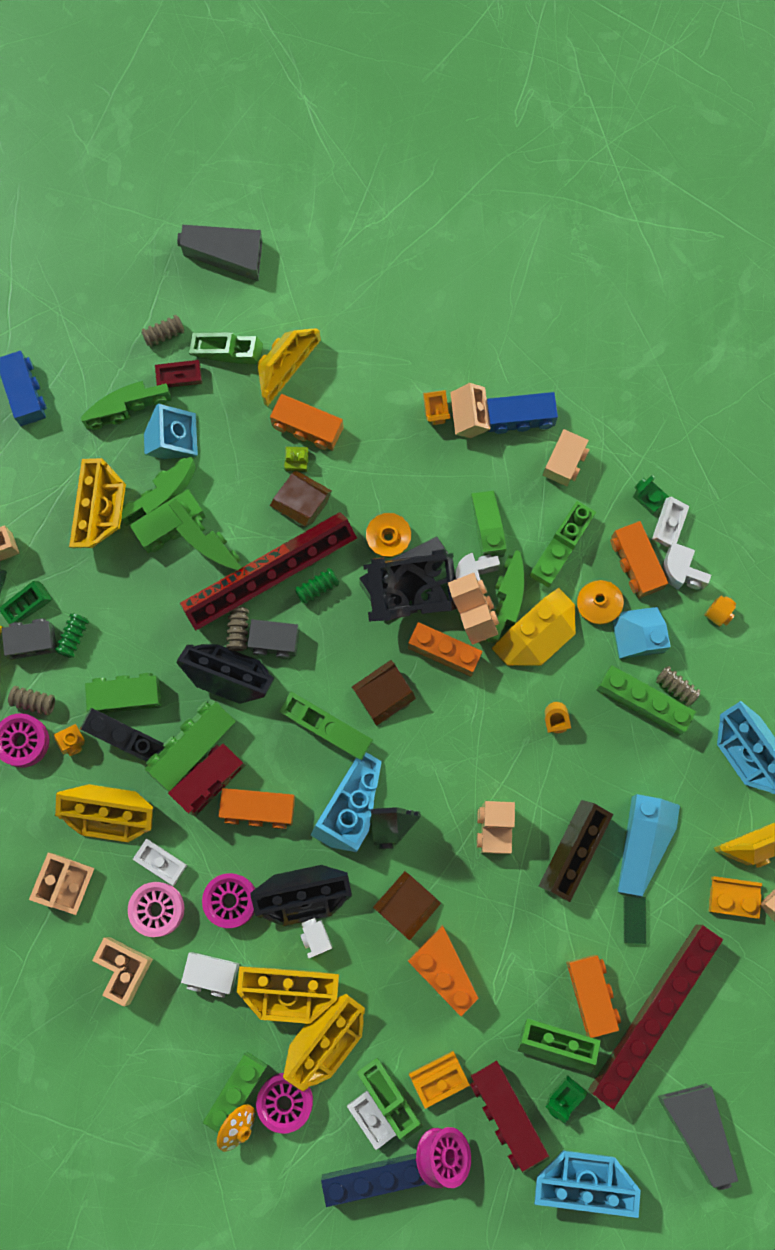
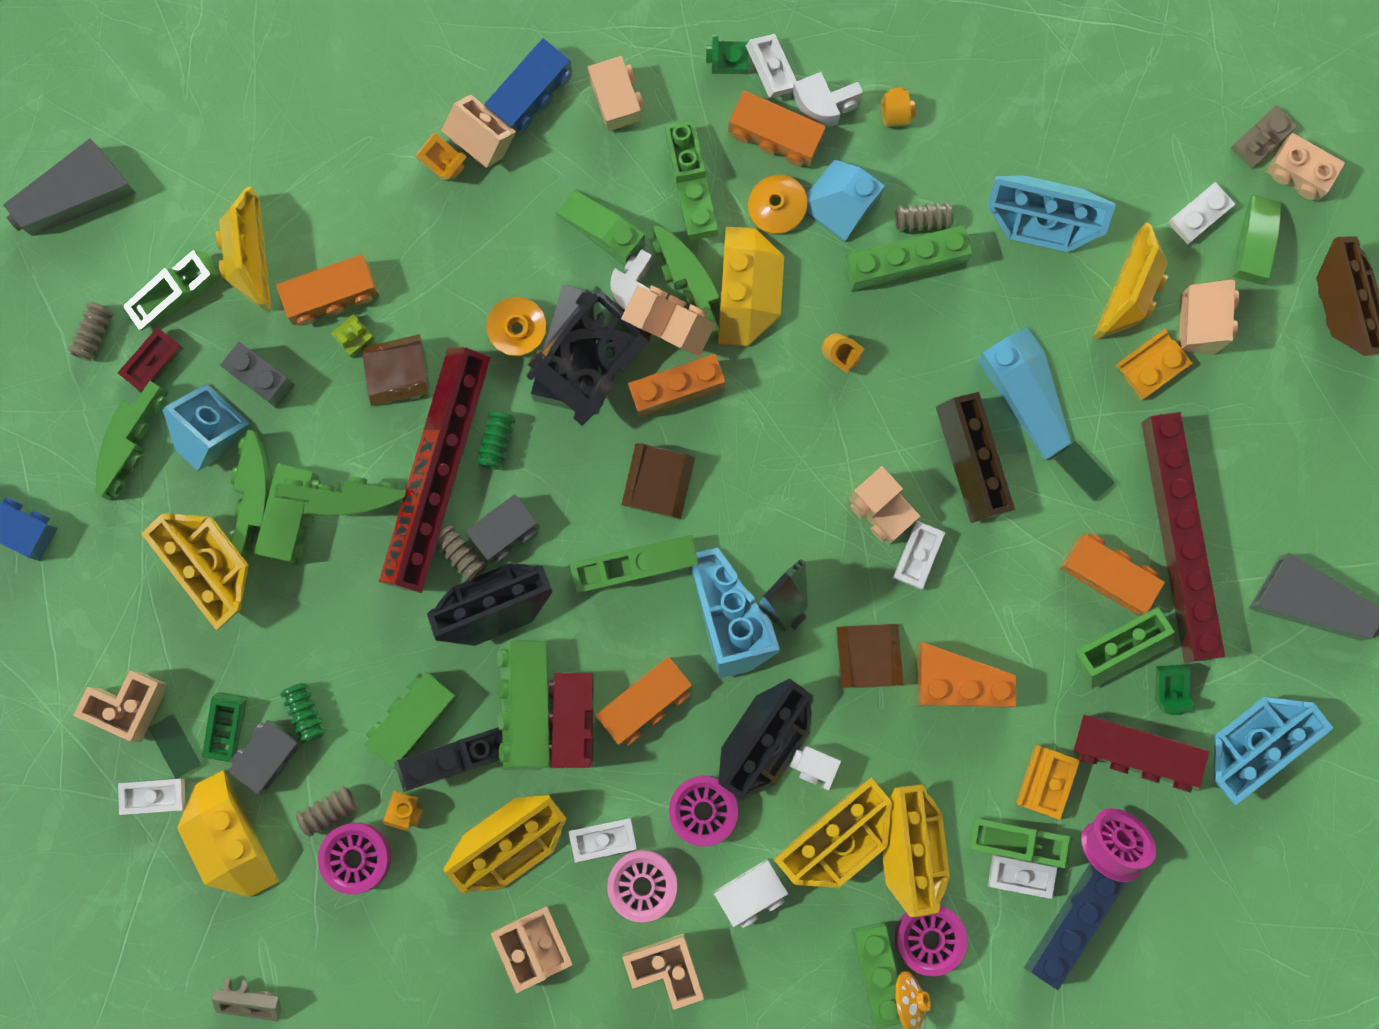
camera: 45 degrees left, 5 degrees up
(225, 433) = (257, 374): none -> dark grey brick
(490, 875) = (918, 555): none -> white plate

